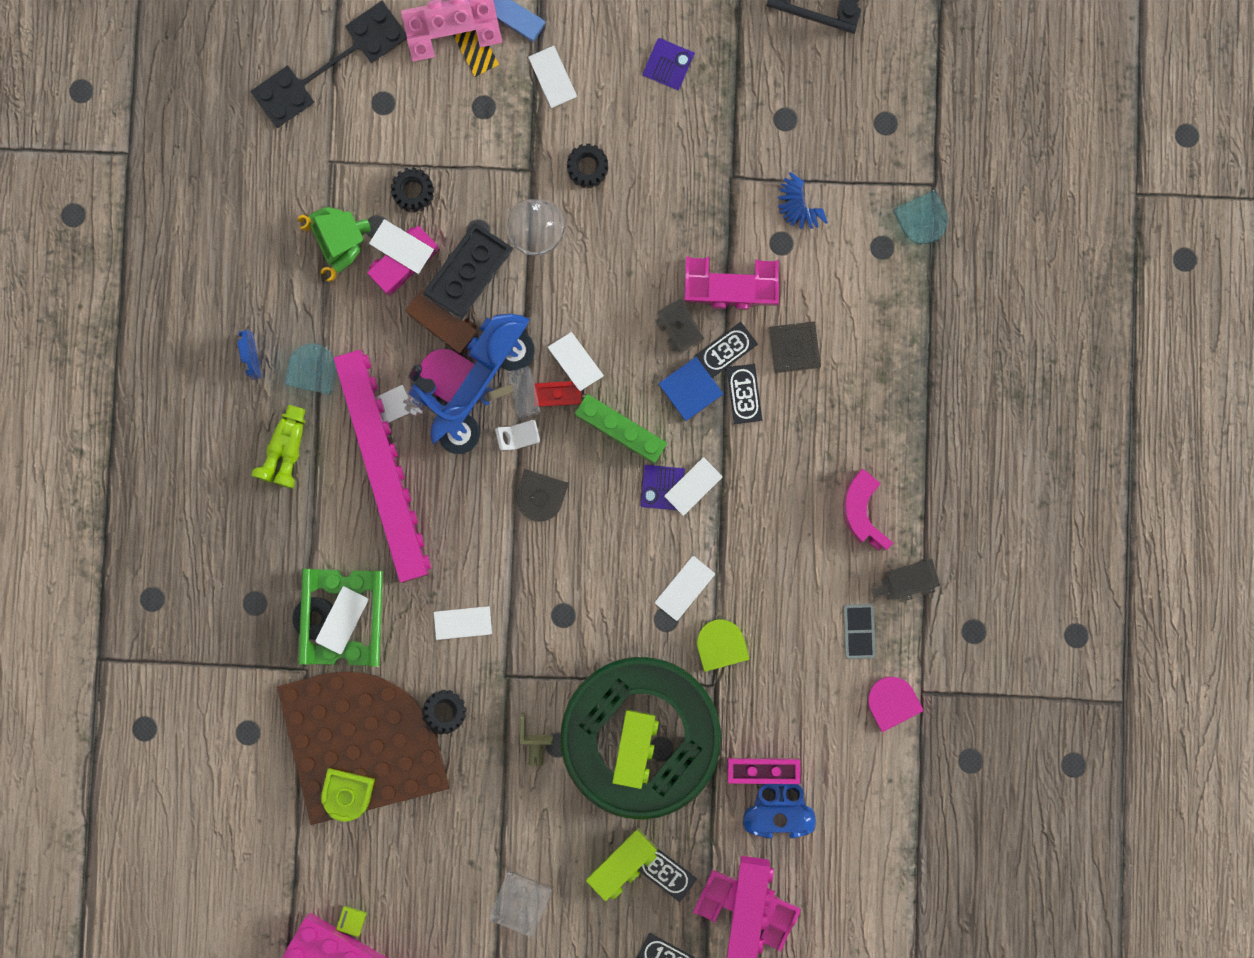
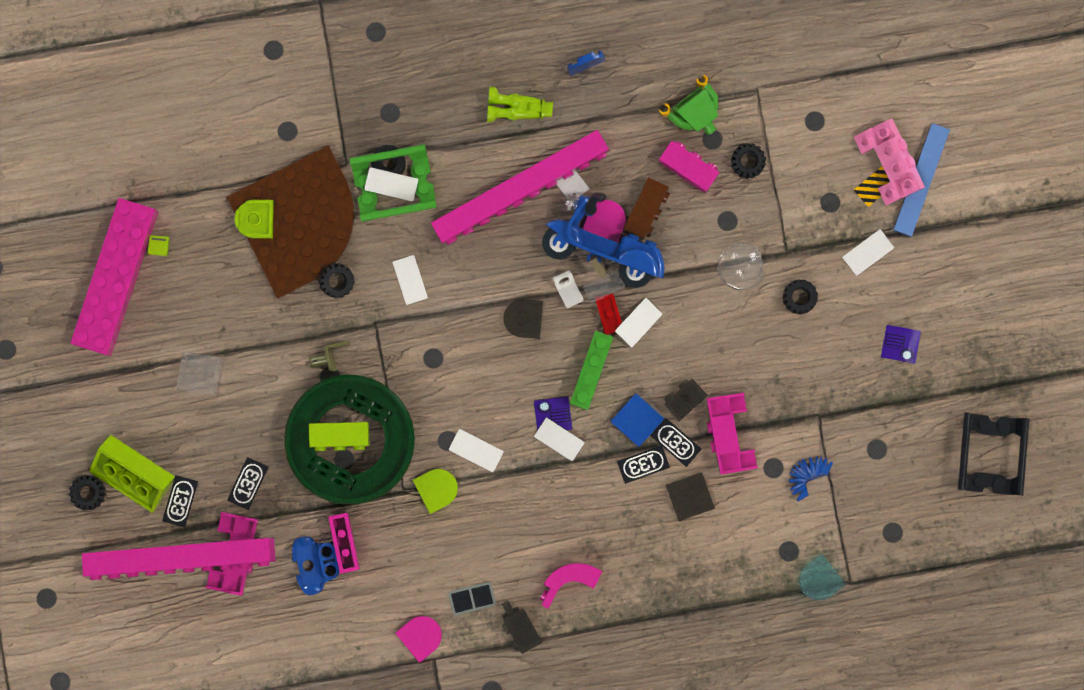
camera: 85 degrees right, 0 degrees up
(285, 95) = (803, 41): black hinge -> none
(311, 369) = (585, 114): clear light blue tile -> none
(401, 246) = (699, 162): white sticker -> none
(467, 271) = (691, 220): black tile -> none
(622, 865) = (246, 448): lime brick -> none

